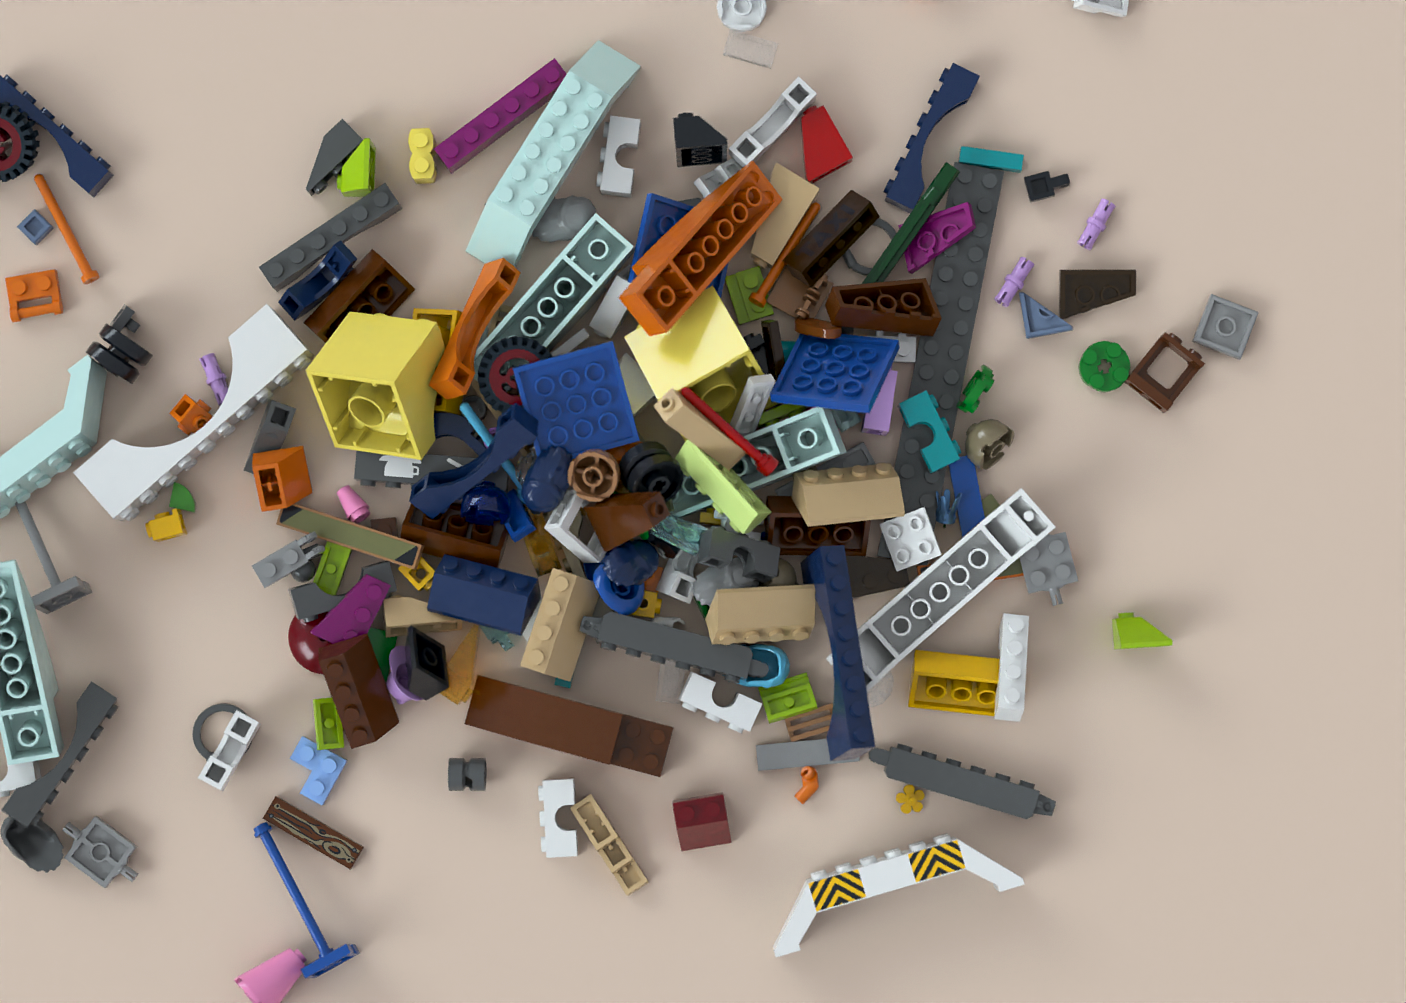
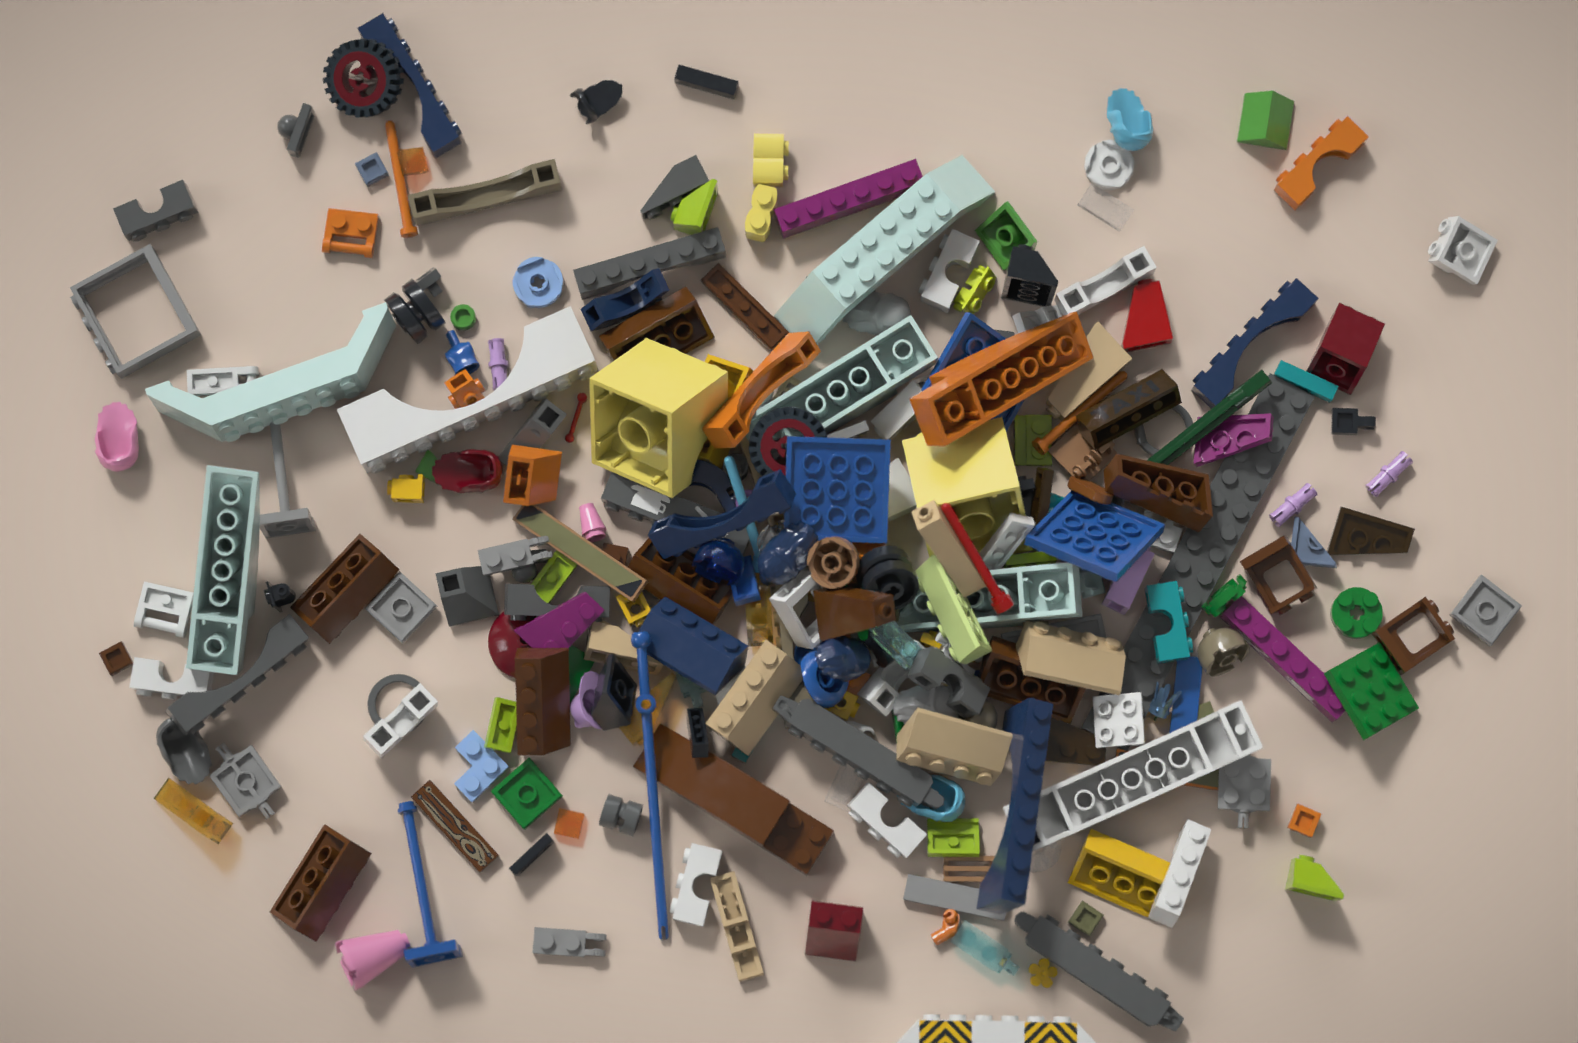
camera: 15 degrees right, 5 degrees down
(60, 896) = (193, 811): none -> clear yellow slope
(72, 207) = (412, 161): none -> clear orange tile
(75, 667) = (279, 595): none -> black hinge
(137, 640) = (344, 588): none -> reddish brown slope
(168, 344) = (463, 317): none -> bright green tile
(177, 381) = (460, 355): none -> blue piece
(182, 199) = (455, 201): none -> dark tan arch
(196, 641) = (401, 607): none -> light grey plate
(202, 926) = (320, 883): none -> reddish brown slope
(219, 491) = (468, 471): none -> dark red hair
(231, 92) = (597, 99): none -> black piece
(244, 289) = (524, 277): none -> light blue plate
(255, 610) = (466, 595): none -> dark grey slope
(306, 386) = (582, 398): none -> red hinge
(331, 43) = (706, 81): none -> black piece
(371, 781) = (526, 793): none -> green plate
(394, 838) = (532, 854): none -> black tile
(414, 101) = (769, 160): none -> light yellow brick
(421, 796) = (569, 823): none -> clear orange tile
(434, 251) = (744, 306): none -> reddish brown tile
(434, 606) = (641, 641): none -> blue bar
(452, 910) = (565, 942): none -> light grey hinge
(515, 675) = (697, 732): none -> black piece
(654, 158) = (982, 281): none -> neon yellow hinge
(661, 104) = (1003, 232): none -> bright green slope
(848, 794) = (984, 949): none -> clear light blue hinge
(935, 735) = (1085, 918): none -> olive tile
(1006, 339) = (1270, 556): none -> reddish brown window
(1020, 115) = (1346, 348): none -> dark red slope
(1052, 431) = (1283, 657): none -> magenta brick
(1113, 579) = (1304, 820): none -> orange plate
(1140, 437) = (1371, 691): none -> green plate

